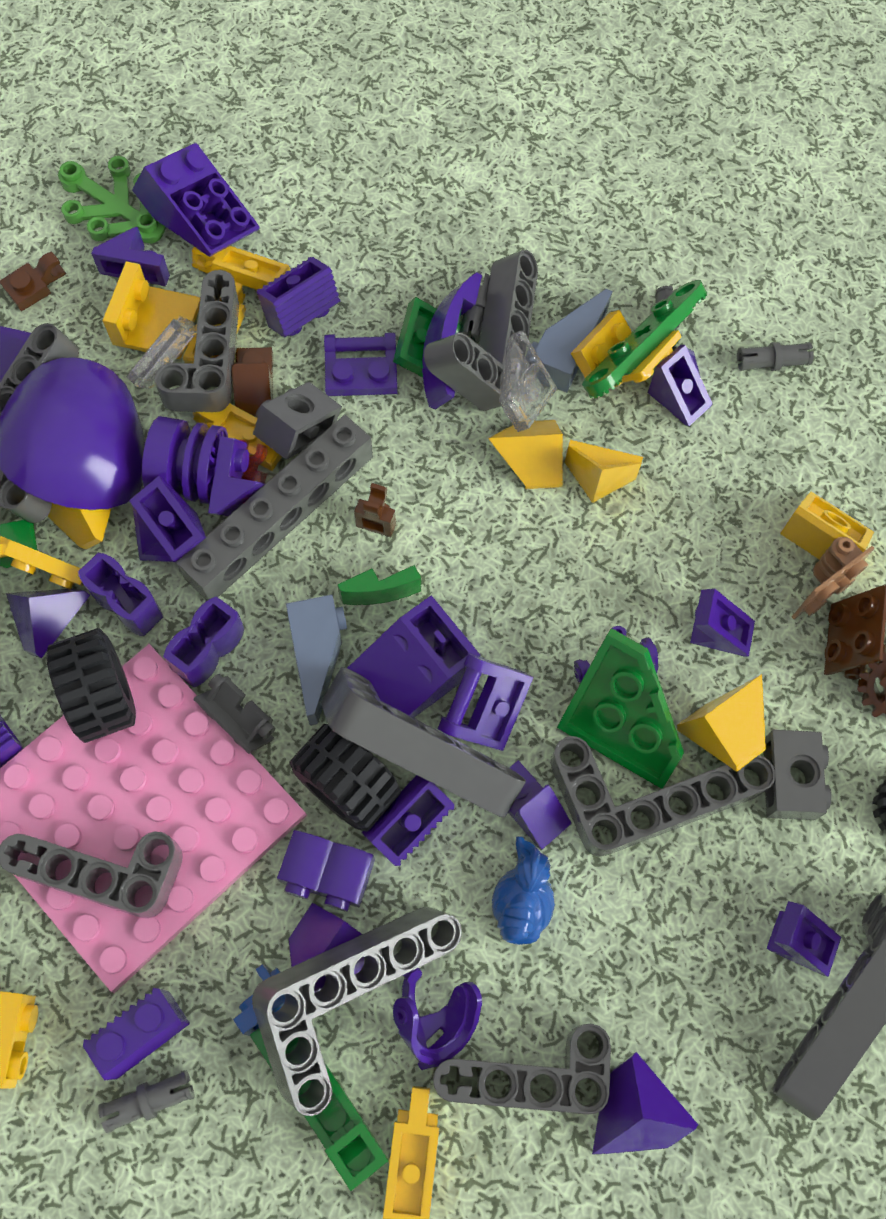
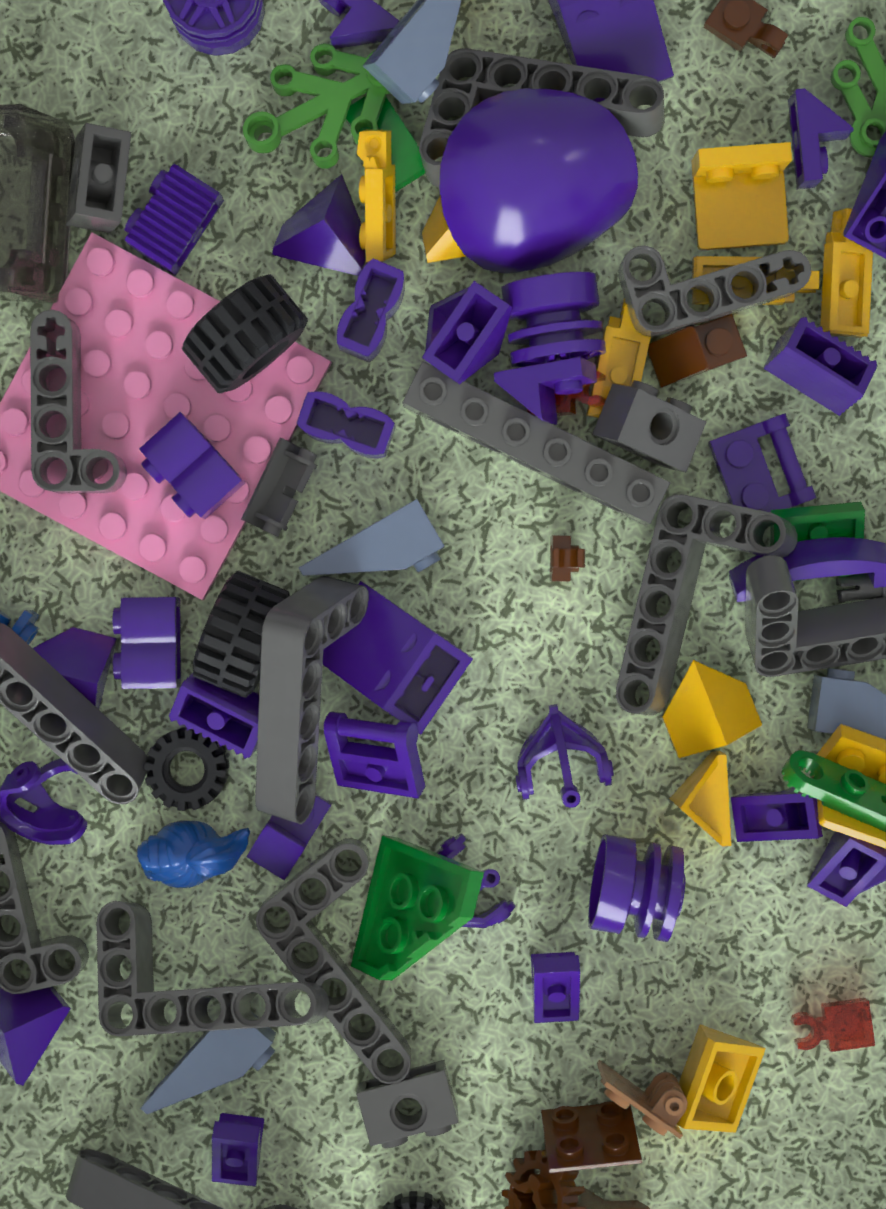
camera: 75 degrees right, 20 degrees up
(163, 351) = (680, 241): clear slope -> none
(185, 776) = (190, 466): none -> dark purple brick
(368, 590) = (471, 582): green slope -> none
(425, 441) = (681, 585): none -> dark grey beam
(456, 849) = (167, 788): none -> black tyre
(515, 561) = (558, 735): none -> dark purple helmet
(525, 383) = (781, 681): clear wing -> none
(629, 418) = (775, 816): none -> dark purple slope
(657, 534) = (636, 888): none -> dark purple wheel
(657, 927) = (190, 1003): none -> dark grey beam
(715, 930) = (211, 1062): none -> sand blue slope
(730, 725) = (436, 1022): yellow slope -> none
(807, 431) = (843, 1026): none -> clear red plate

